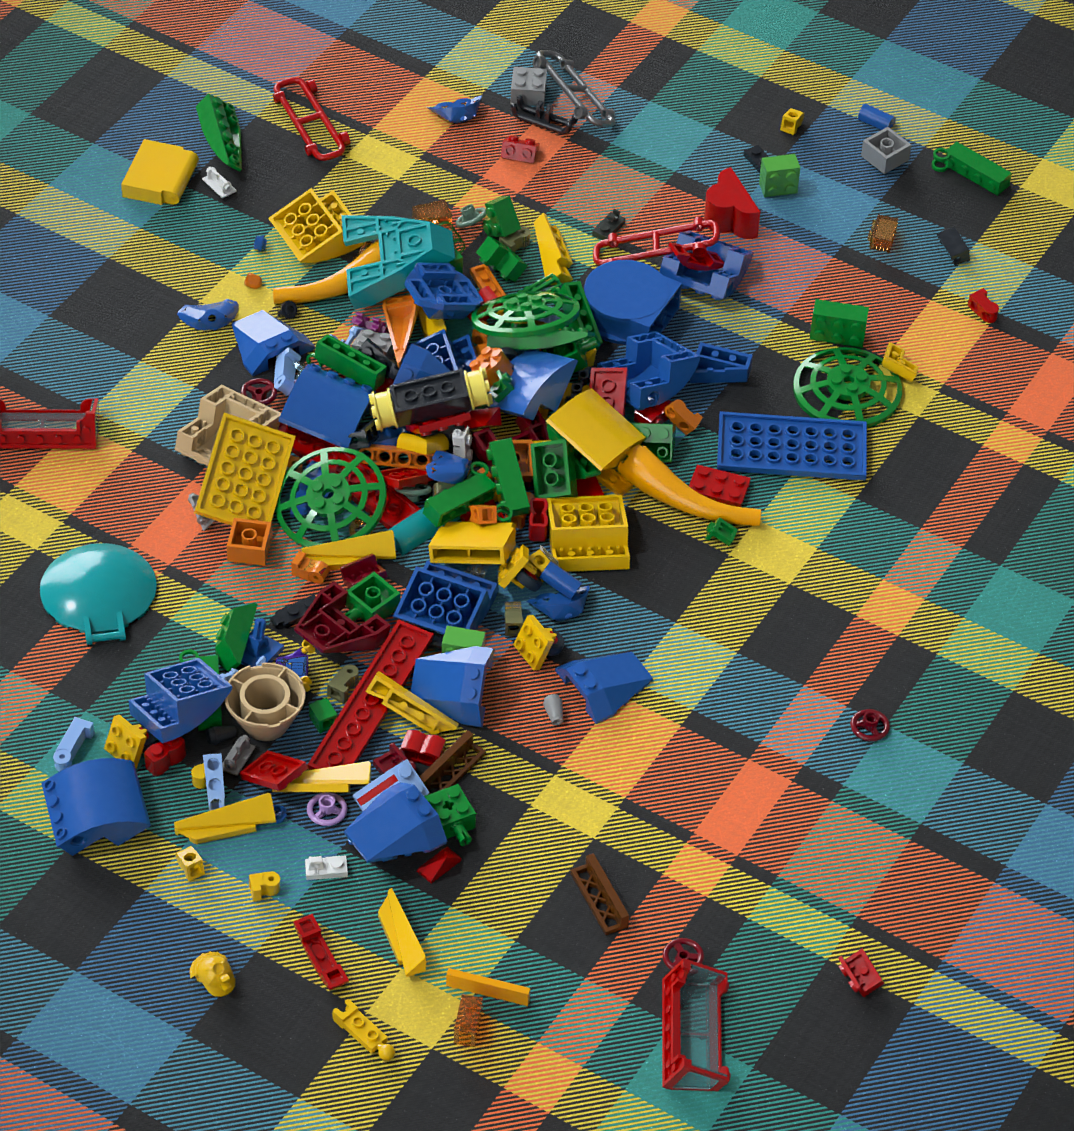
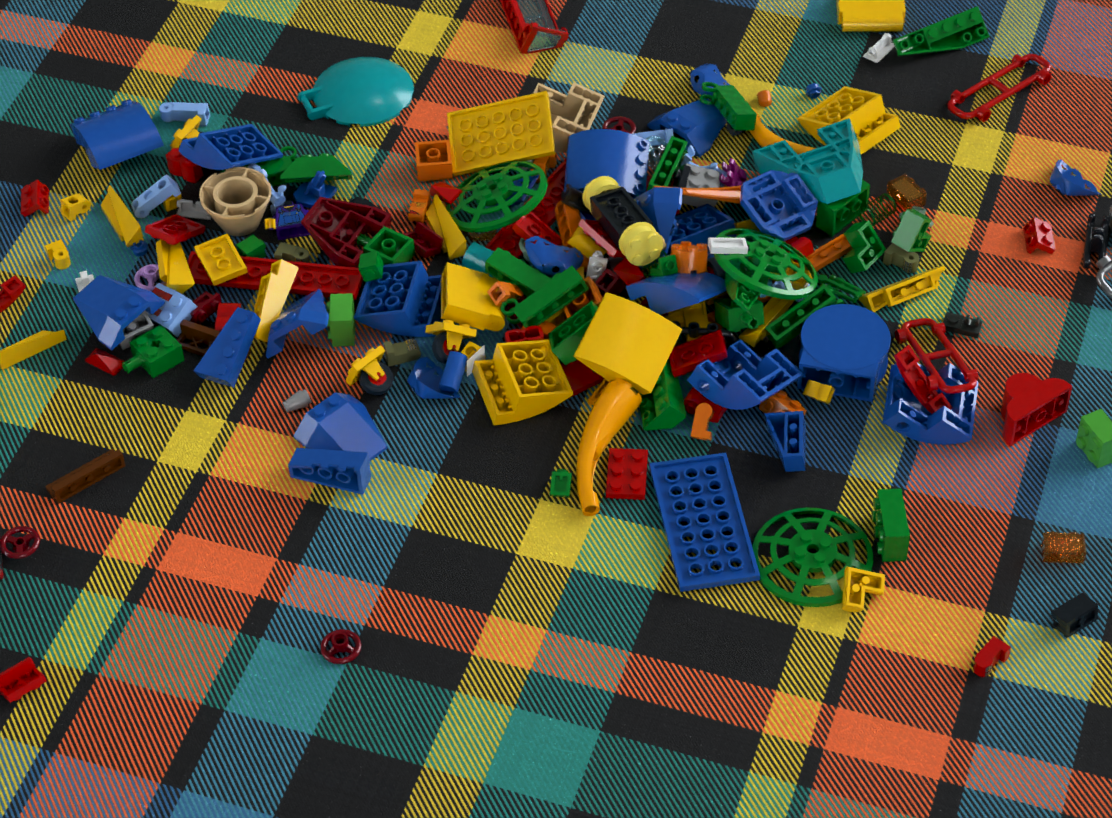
camera: 80 degrees right, 0 degrees up
(160, 901) = (34, 197): none -> red bracket
(269, 300) = (731, 105): none -> green hinge
(300, 540) = (445, 192): none -> red slope
(339, 735) = (220, 259): none -> yellow plate
(405, 609) = (371, 266): none -> green brick
(480, 742) = (229, 350): none -> blue wedge
(517, 321) = (727, 245): none -> white tile
(658, 691) = (332, 468): none -> blue wedge
(670, 329) = (819, 391): none -> yellow leg

